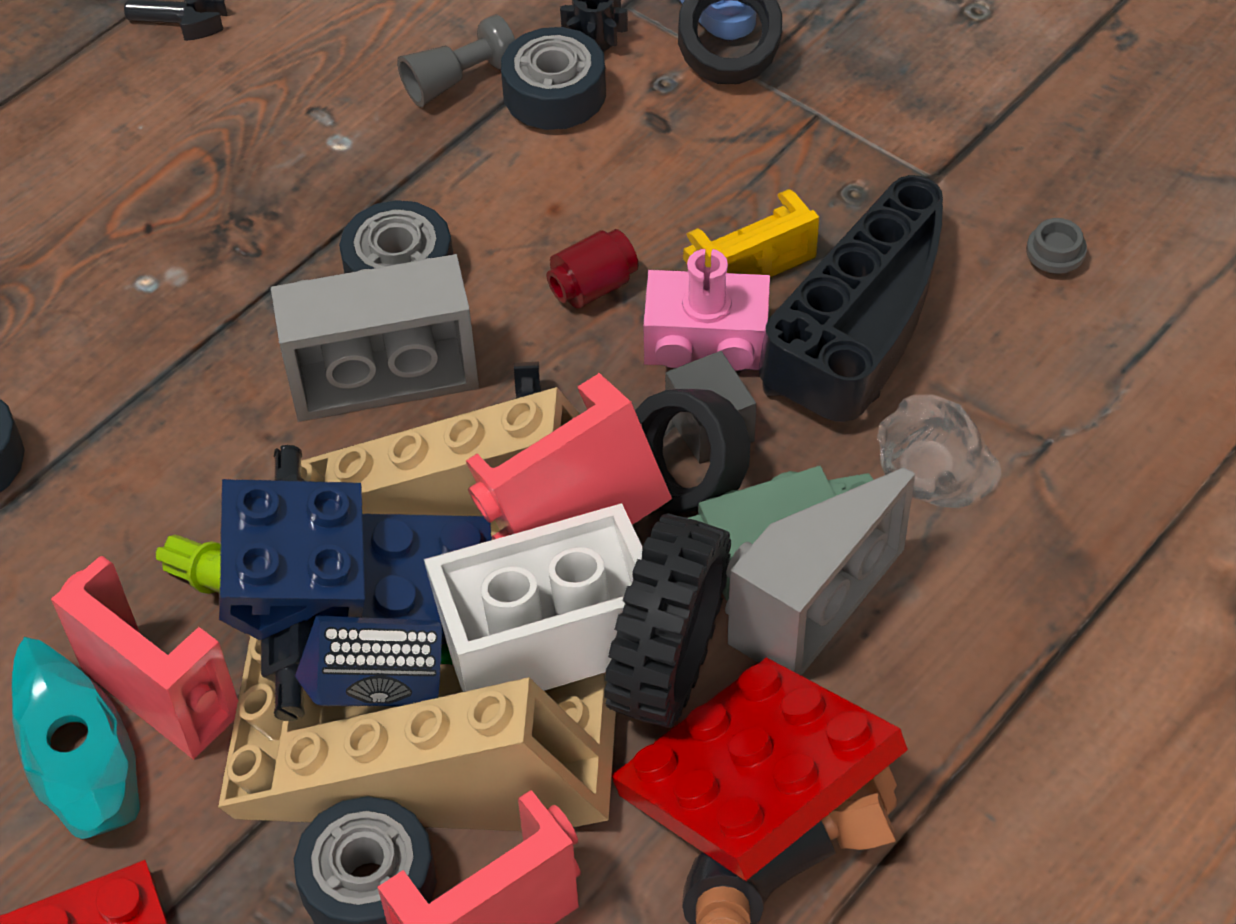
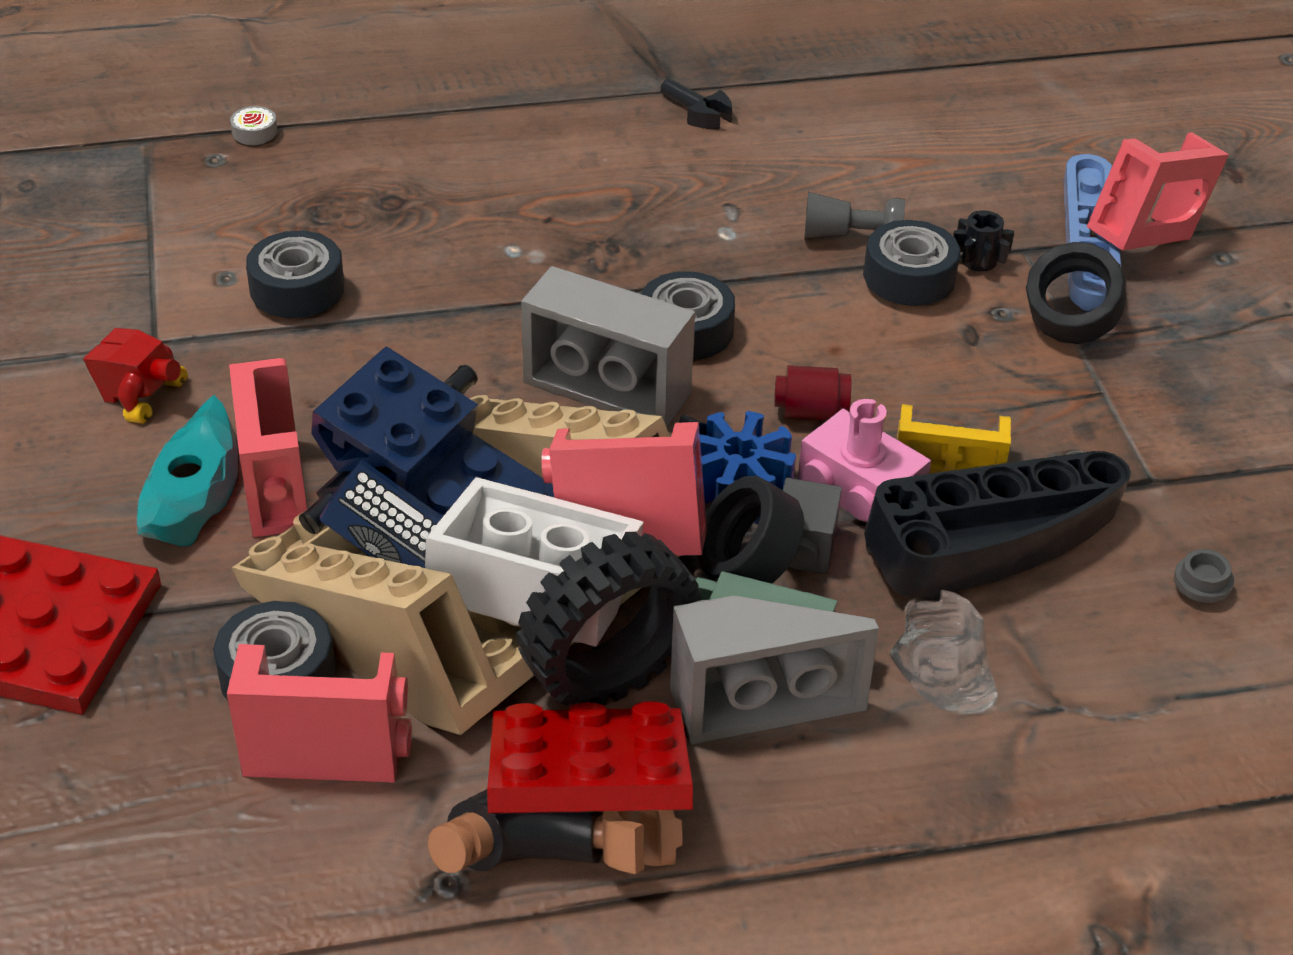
camera: 35 degrees right, 10 degrees down
(627, 370) = (735, 455): none -> blue gear

